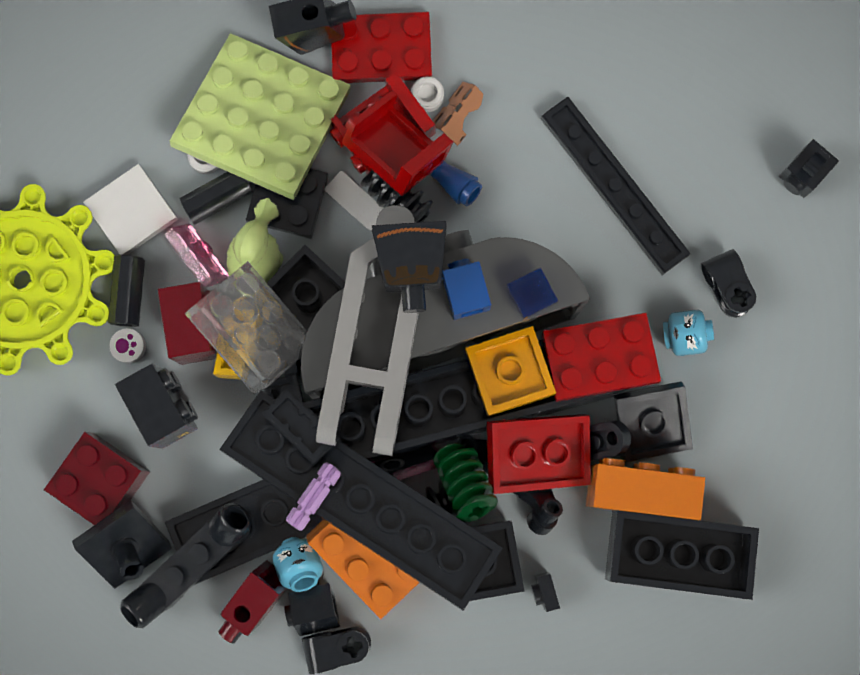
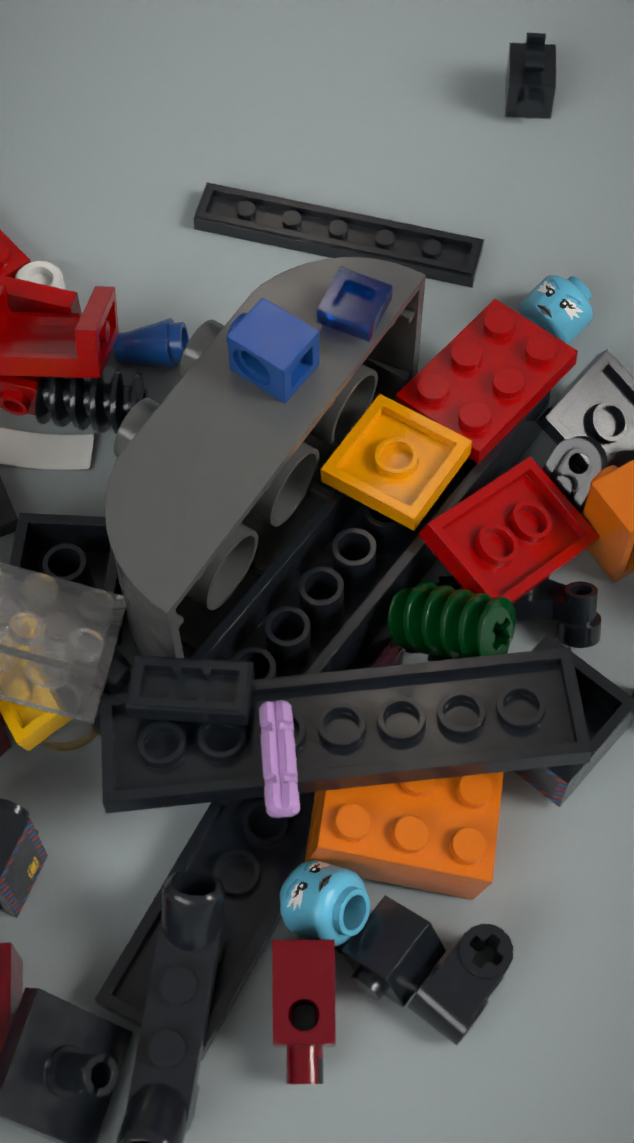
camera: 40 degrees left, 20 degrees down
(342, 373) = (129, 351): light grey piece -> none
(411, 259) = (176, 335): black torso -> none
(454, 126) = (100, 259): nougat piece -> none
(728, 278) = (550, 232): black piece -> none

